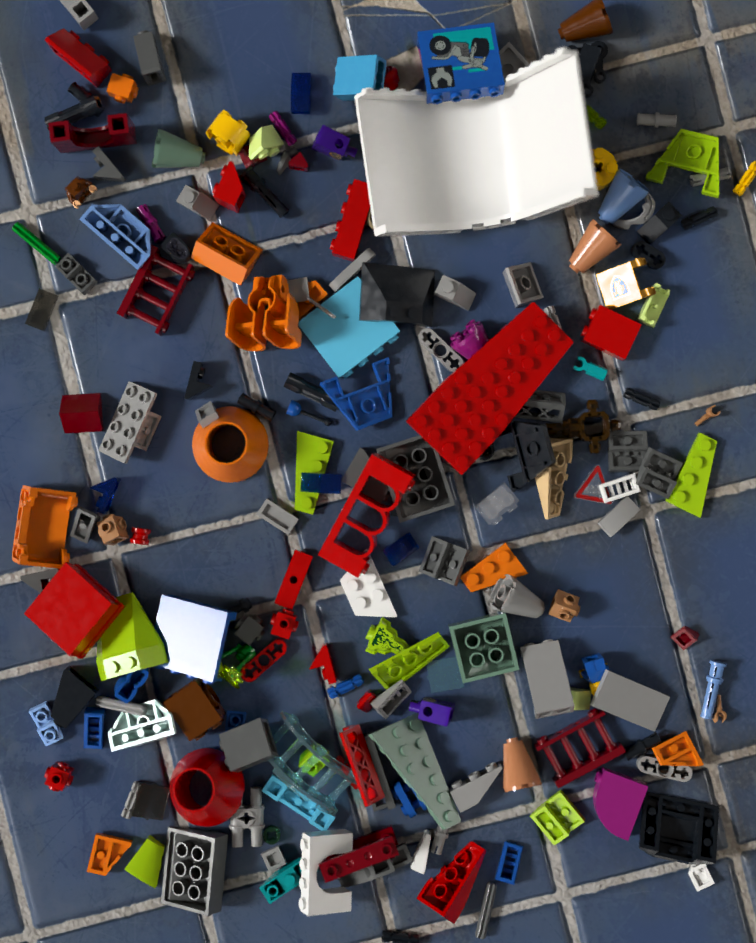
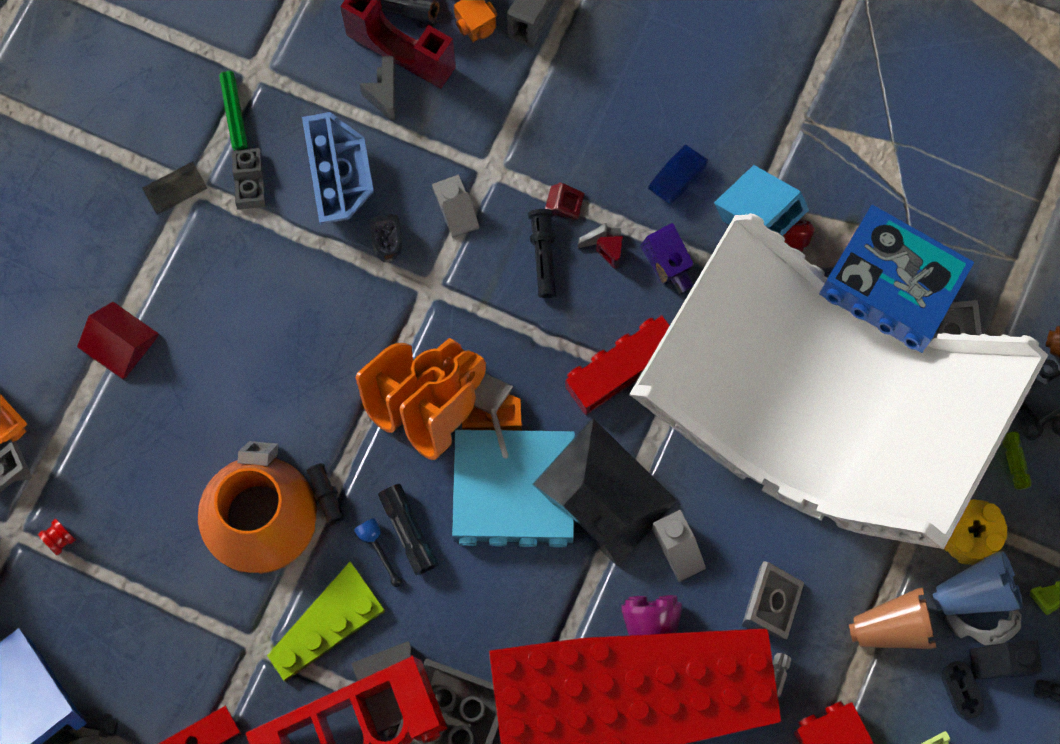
camera: 35 degrees right, 15 degrees down
(78, 190) = (329, 89): reddish brown piece -> none
(108, 489) = (68, 452): clear blue slope -> none
(112, 529) = (30, 502): medium nougat brick -> none
(131, 424) = (163, 397): light grey bracket -> none
(136, 291) = (300, 248): dark red fence -> none
(150, 222) = (381, 186): magenta pin -> none
(175, 152) = (476, 129): sand green cone -> none
(195, 387) = (271, 411): black slope -> none
(226, 253) = (439, 286): orange slope -> none
(228, 133) = (555, 154): yellow brick -> none
(229, 191) = (505, 215): red slope -> none
(264, 143) = (588, 196): yellowish green slope -> none
(277, 516) = (239, 648): light grey tile -> none
(282, 127) = (624, 198): magenta axle -> none
(320, 483) = (324, 646): clear blue slope -> none
(356, 266) = (574, 420): light grey beam -> none
(367, 404) = (458, 595): blue wing -> none
(426, 344) = (611, 579): light grey beam -> none
(621, 285) = (898, 699): flag -> none

